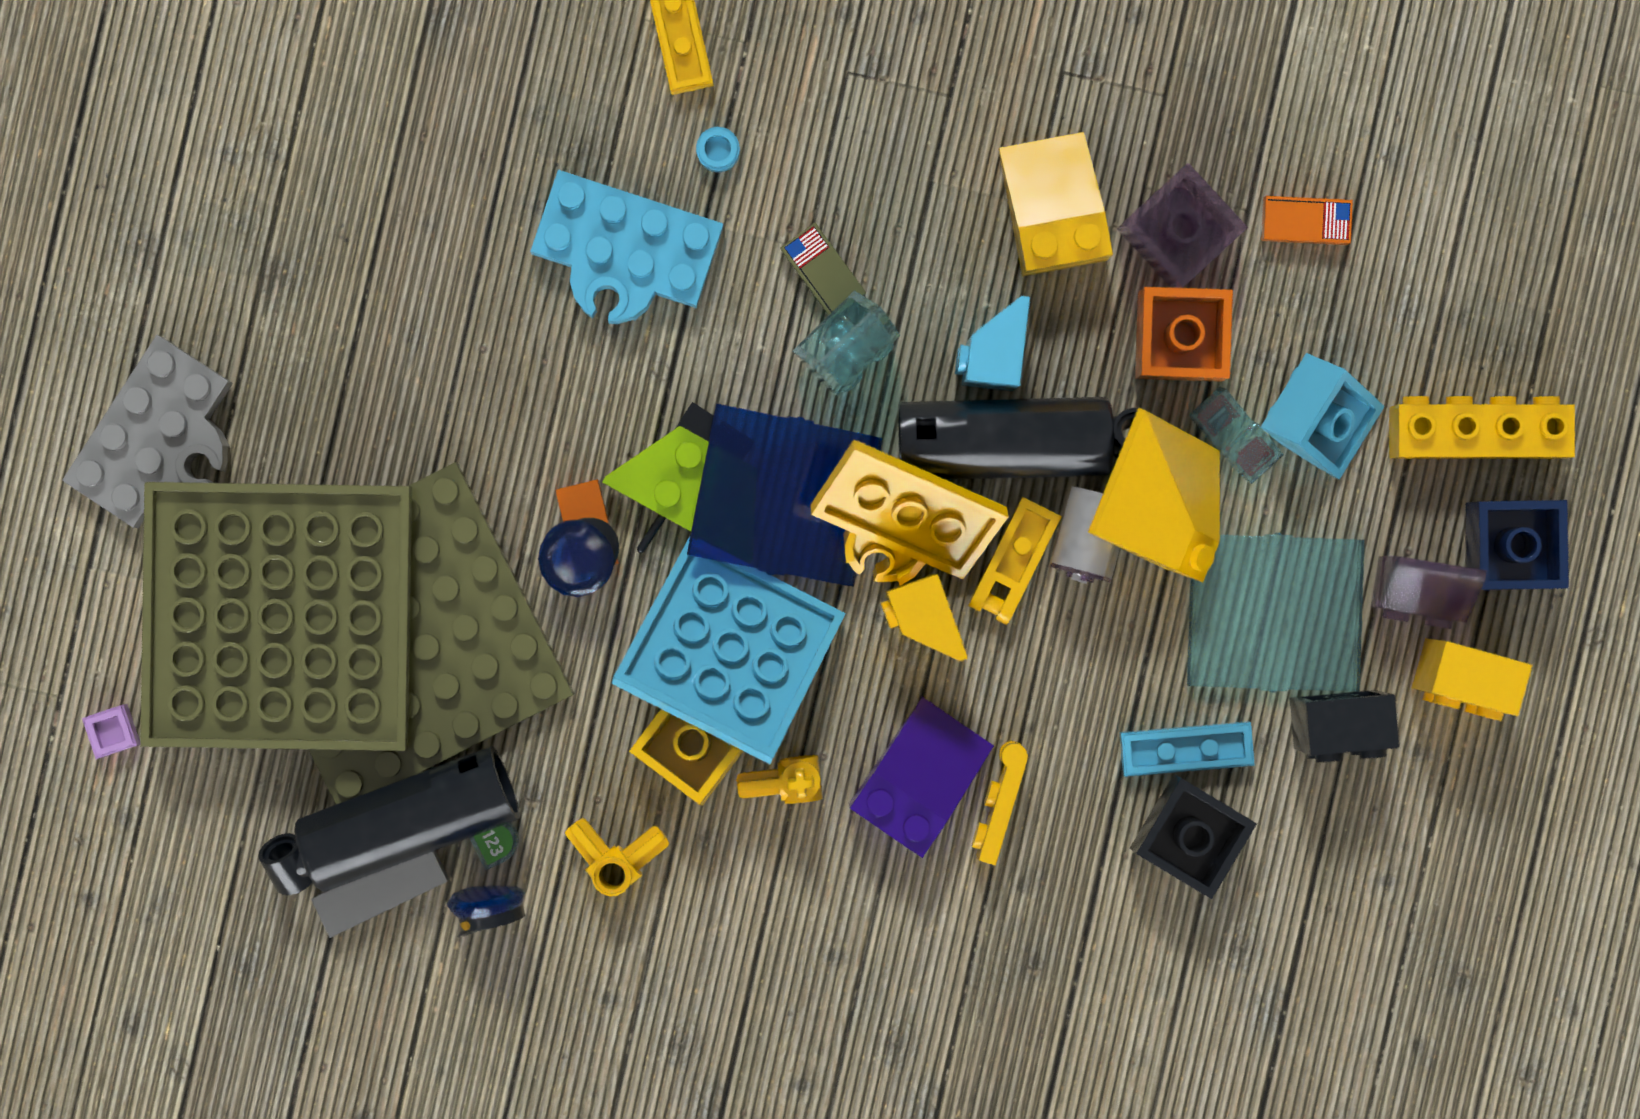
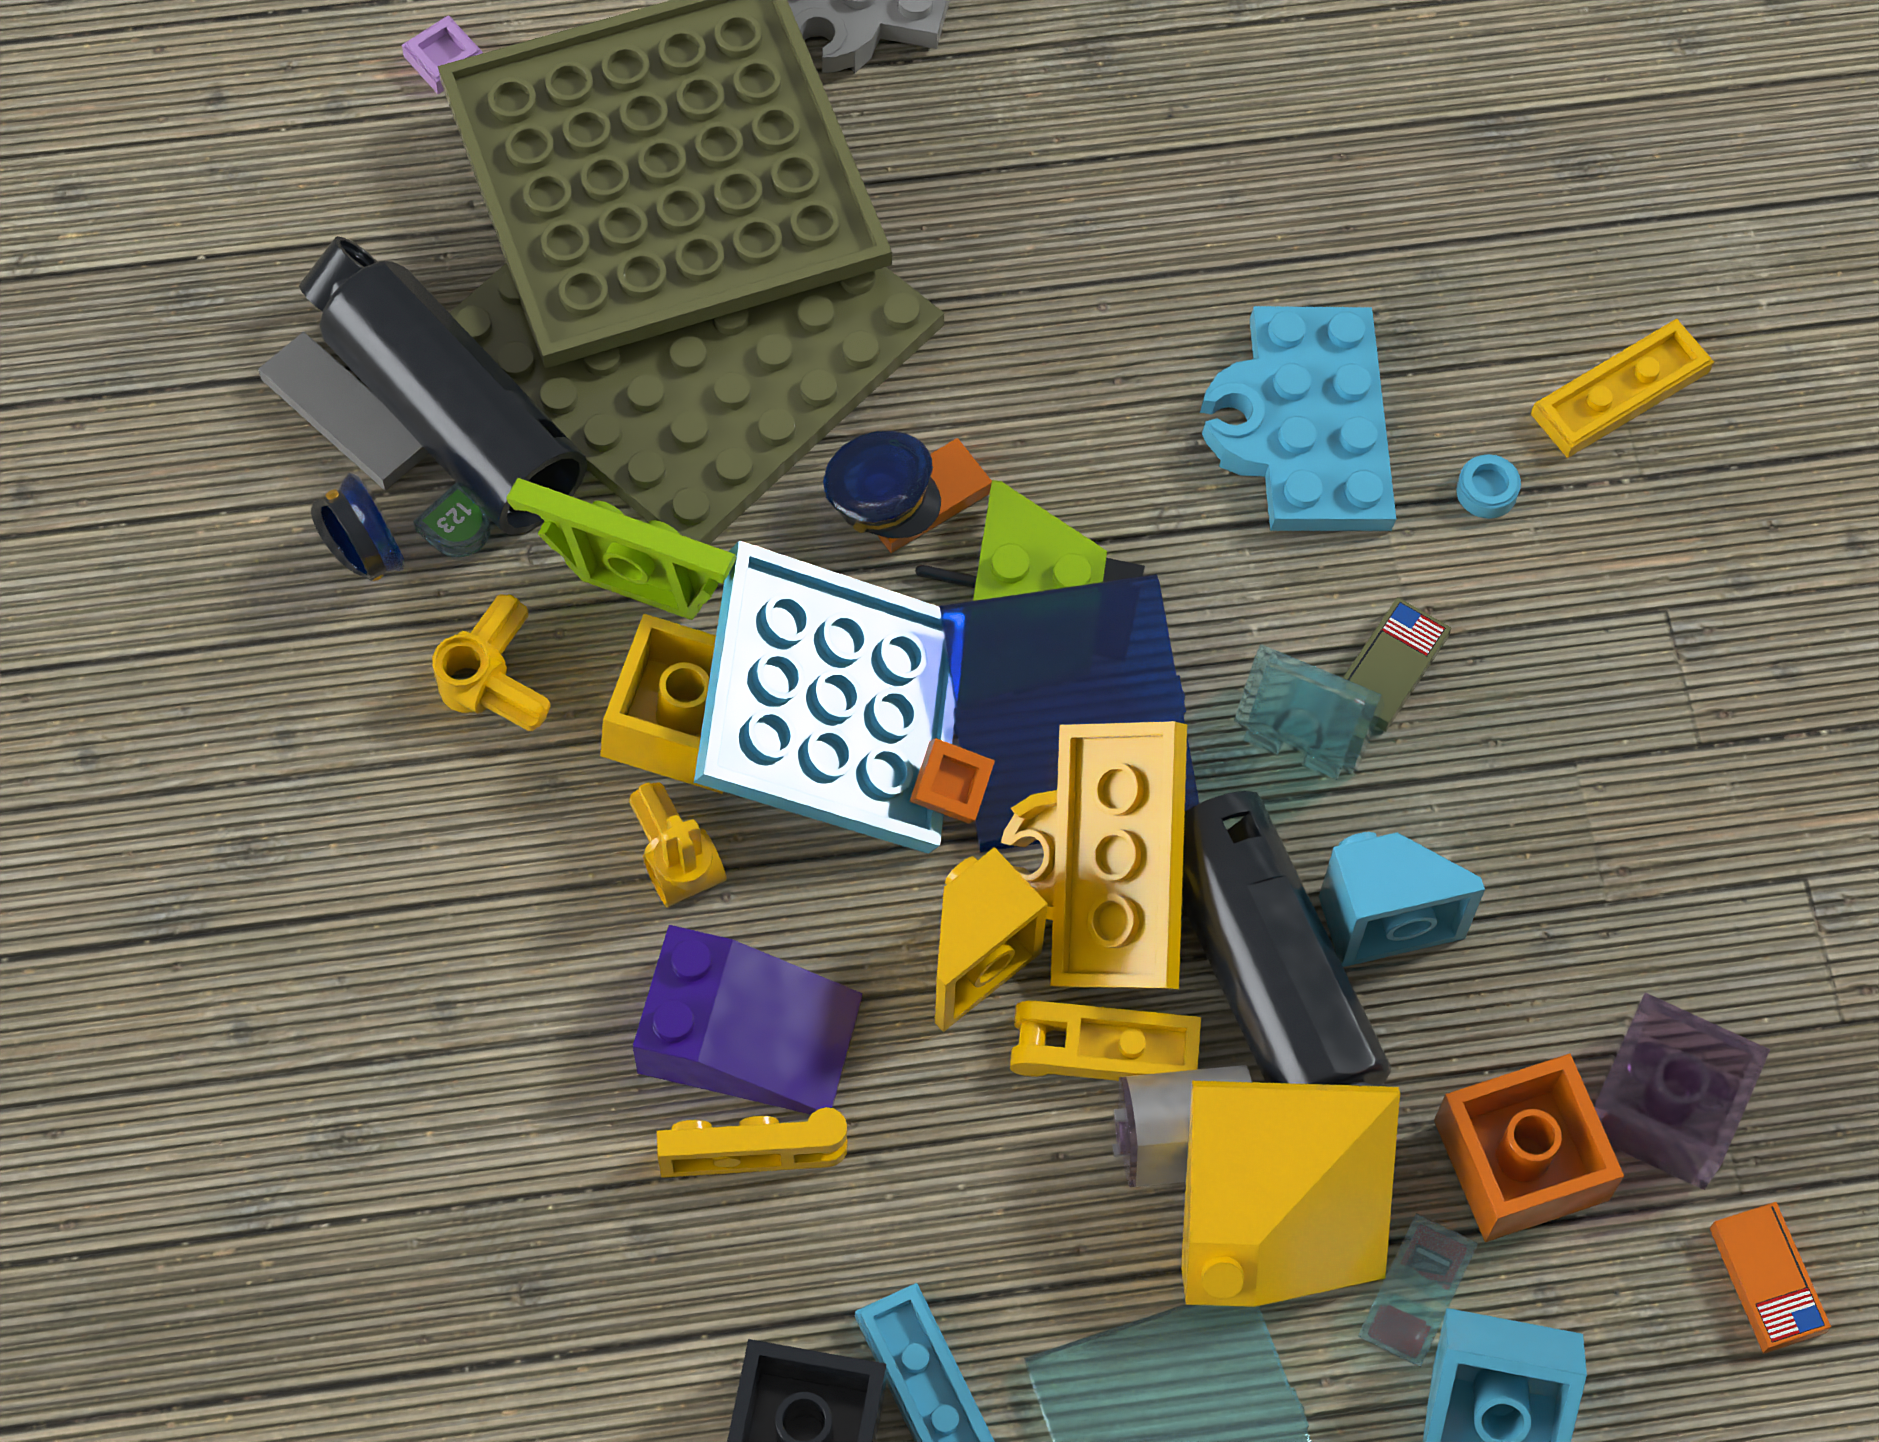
camera: 65 degrees right, 25 degrees down
(568, 750) = (626, 554): none -> lime wing
(810, 591) = (952, 780): none -> orange tile
(1055, 204) = (1617, 923): yellow slope -> none

